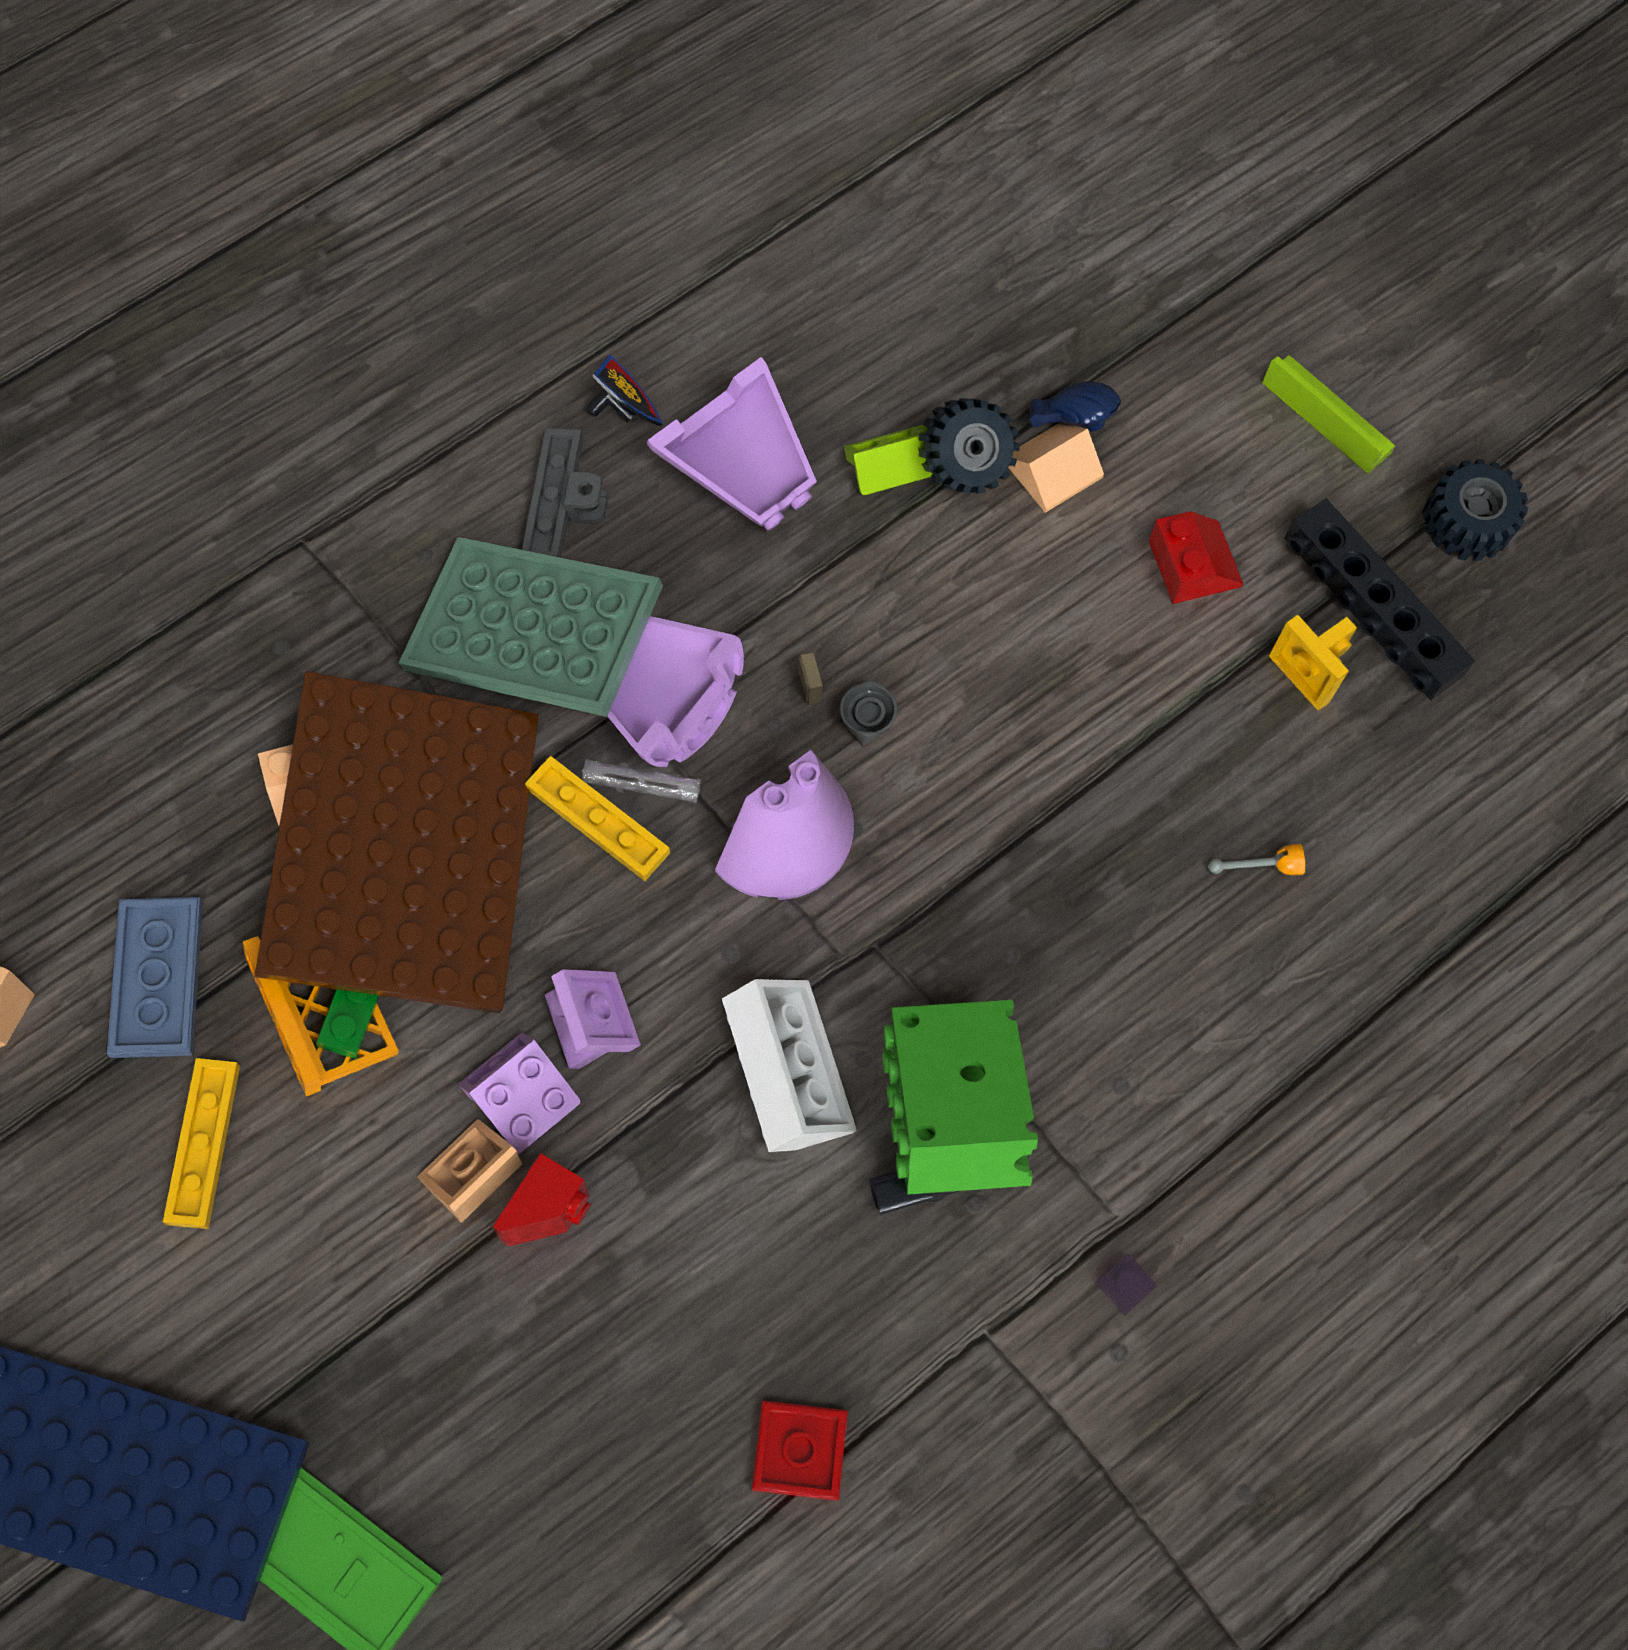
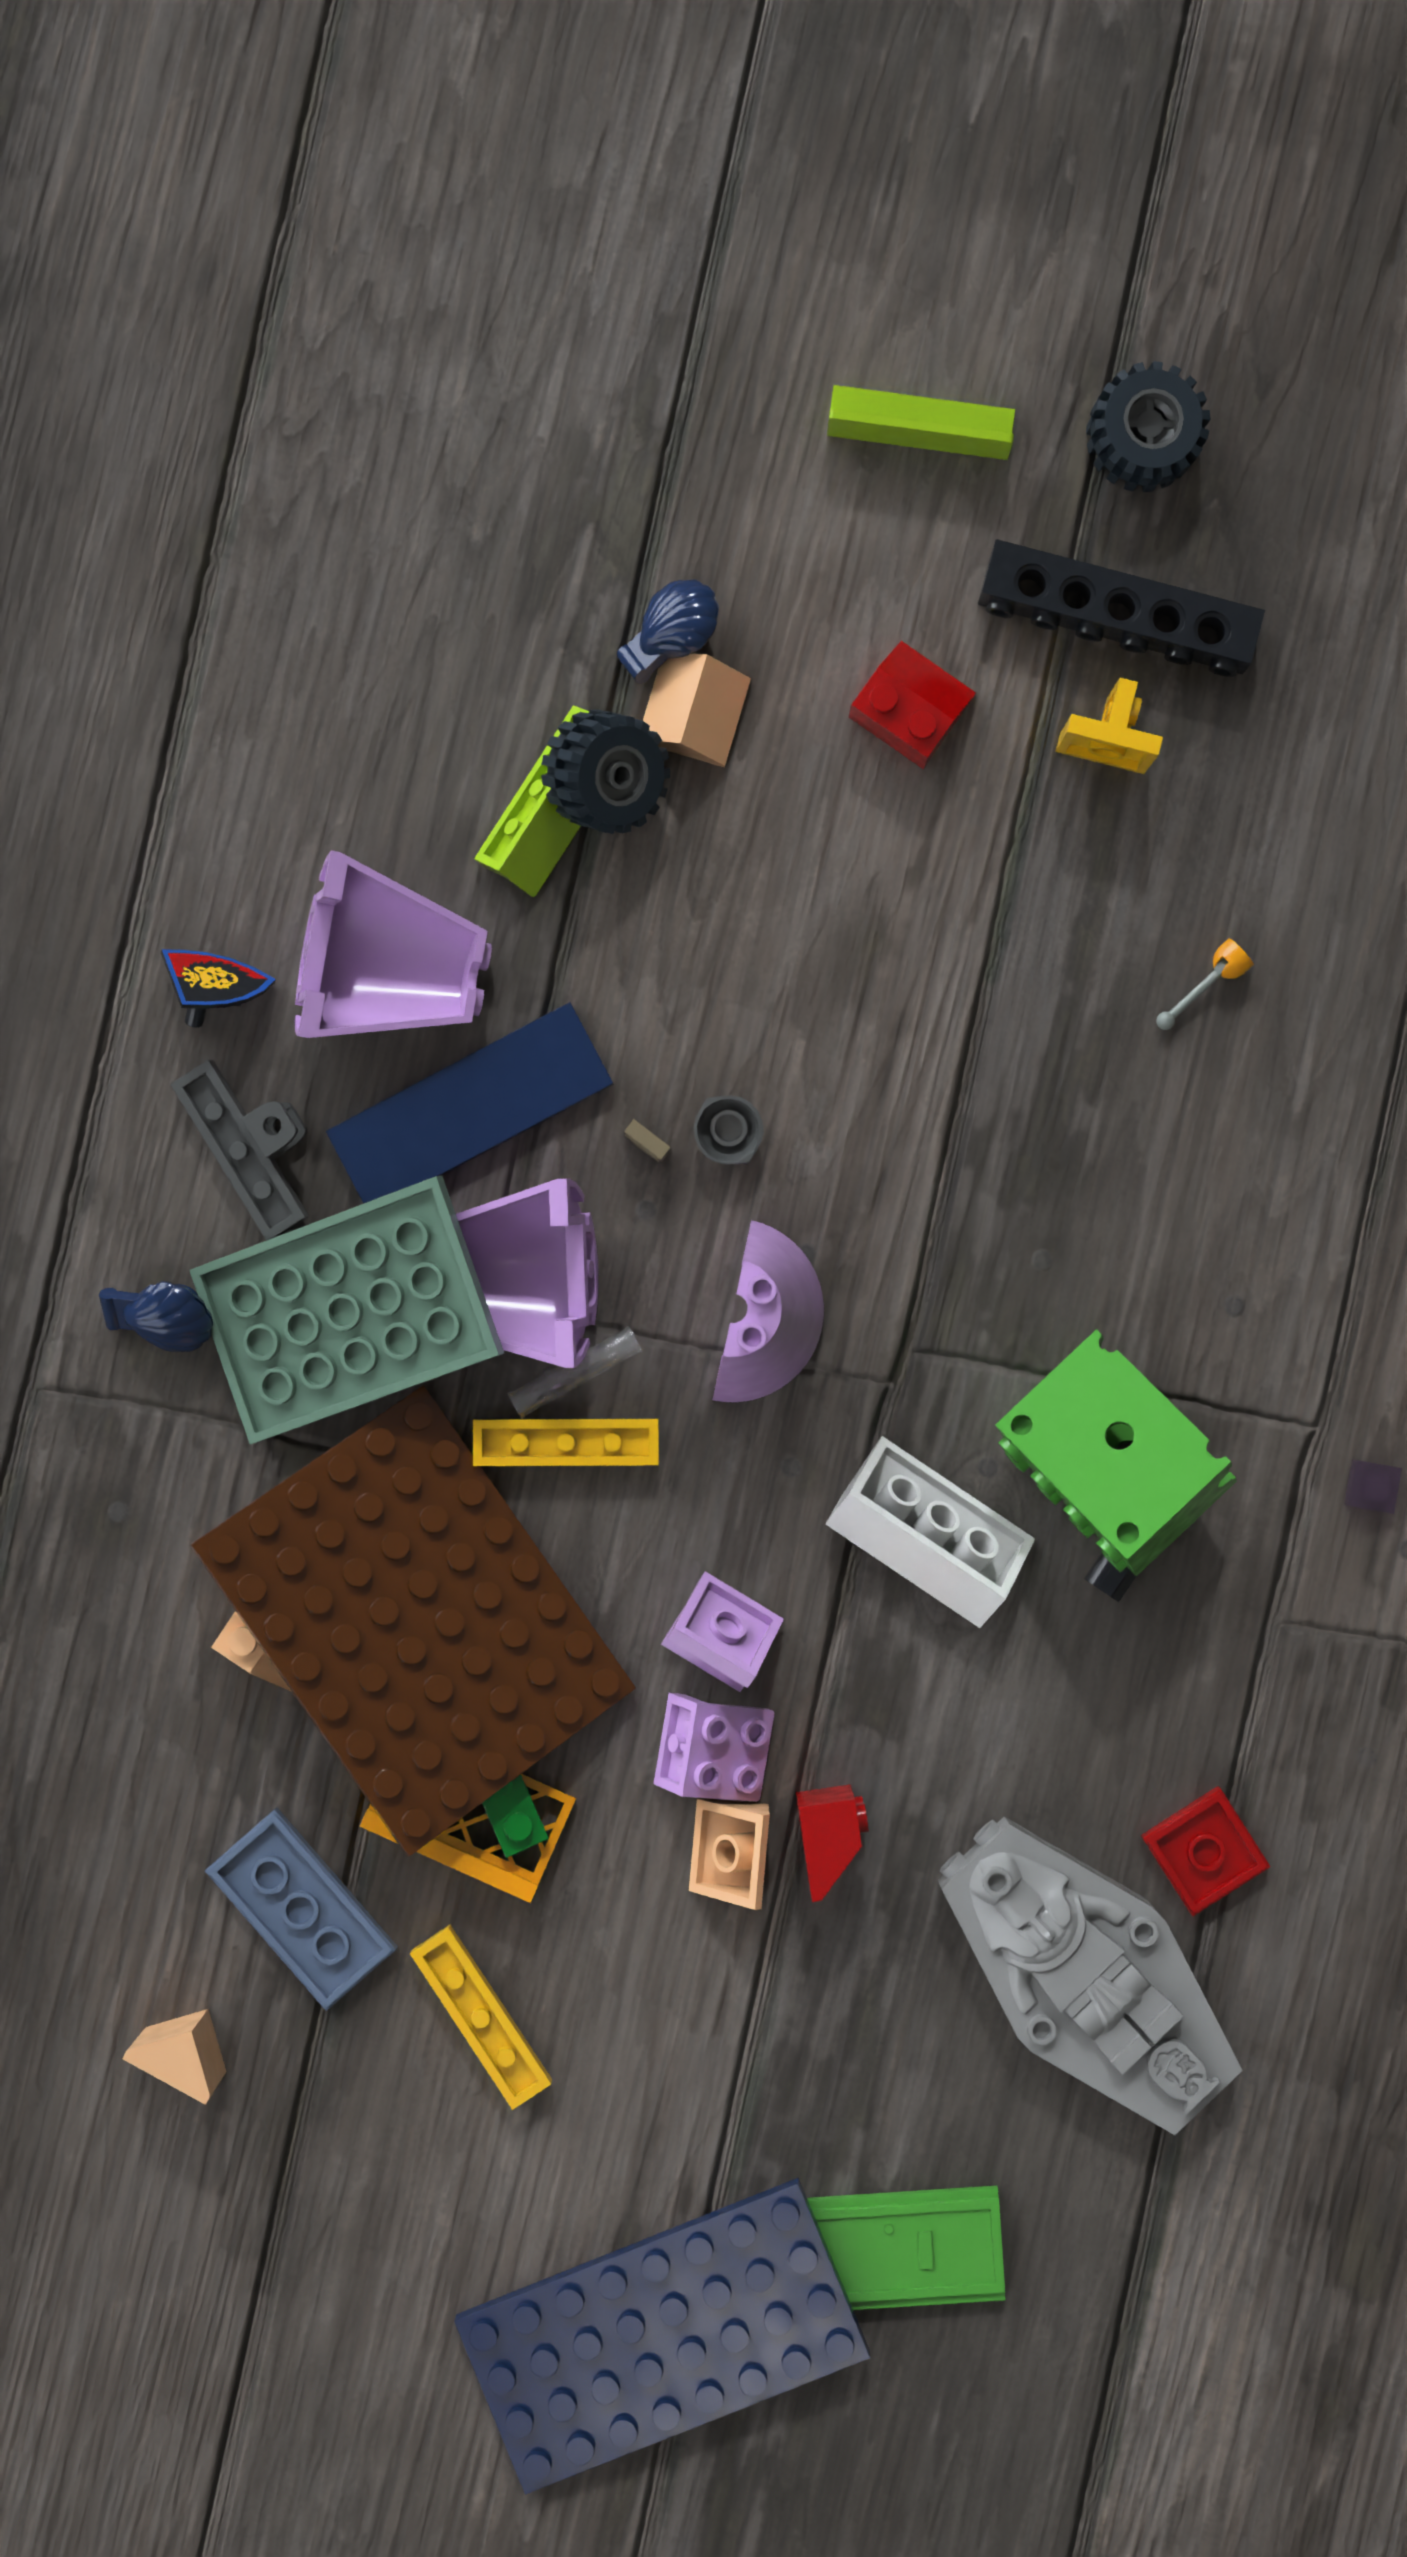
camera: 30 degrees left, 20 degrees up
(417, 547) = (161, 1314): none -> dark blue animal
(641, 1469) = (1089, 1975): none -> light grey container
(726, 579) = (471, 1105): none -> dark blue tile

